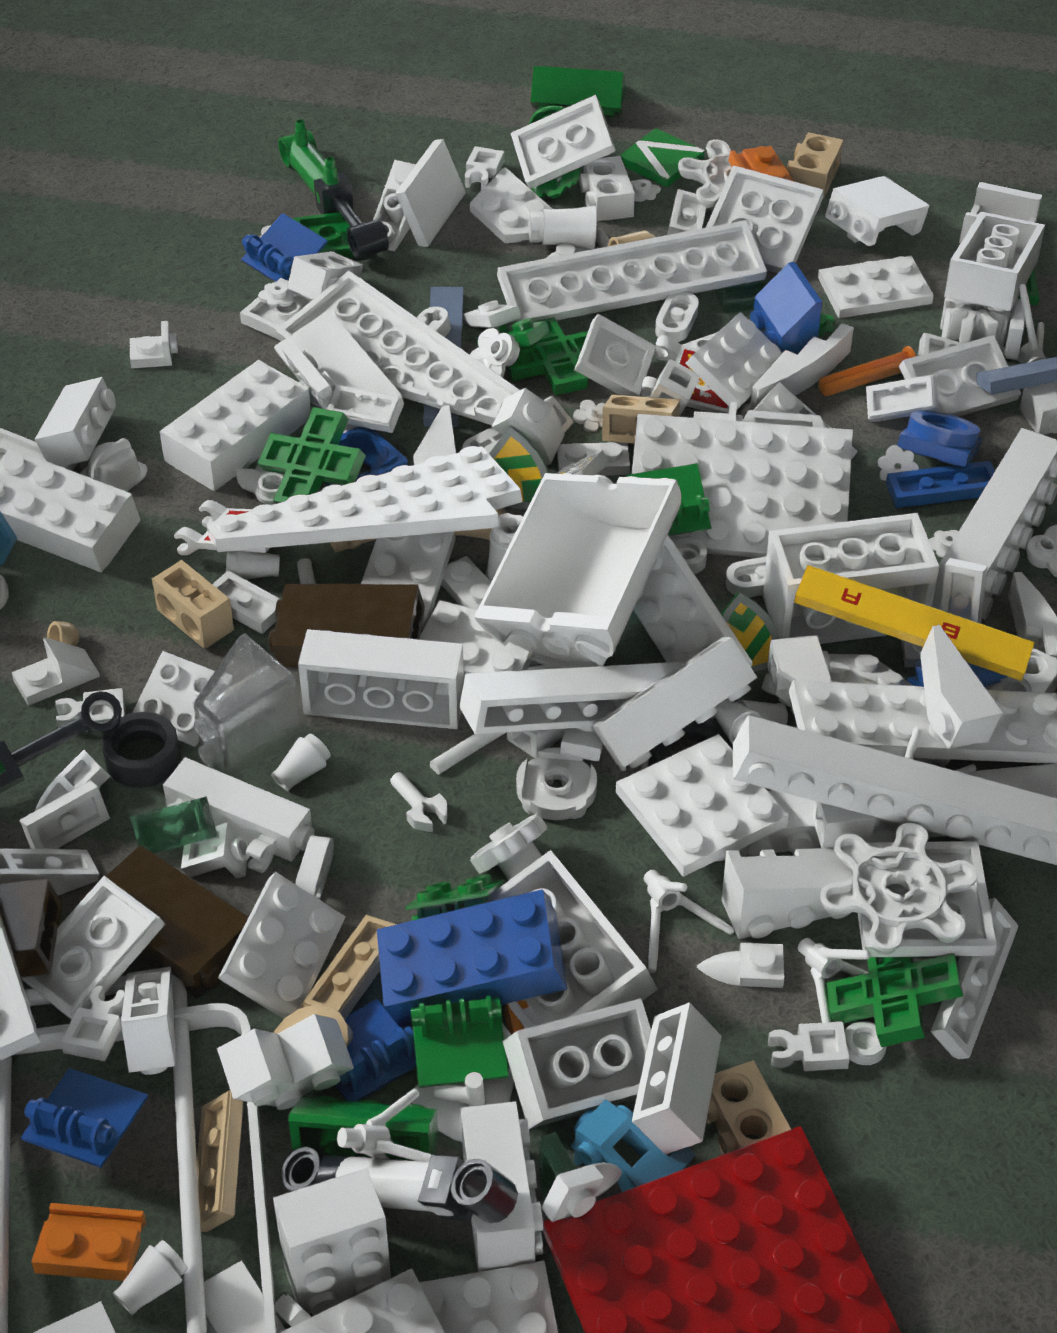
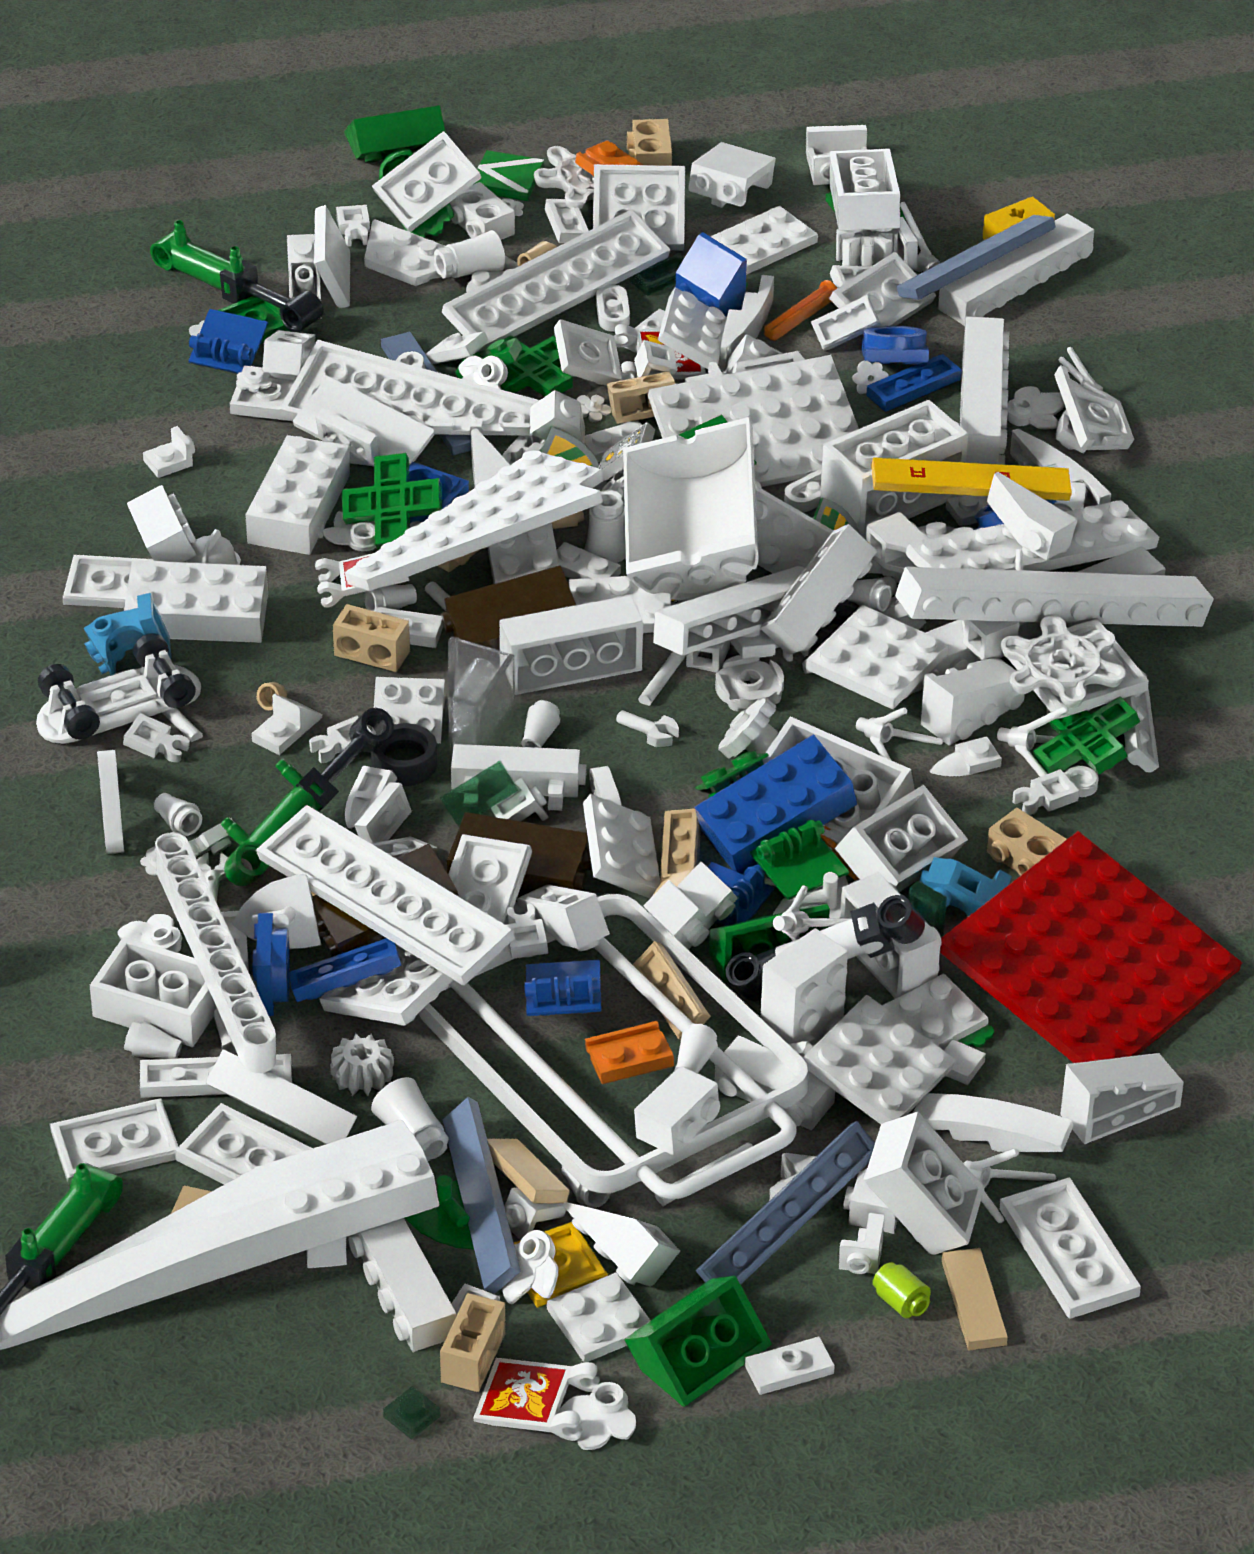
camera: 25 degrees left, 5 degrees down
(367, 408) = (420, 446): white plate -> none
(576, 1190) = (954, 911): white plate -> none
(677, 1079) = (977, 827): white brick -> none
(964, 589) = (989, 444): white plate -> none

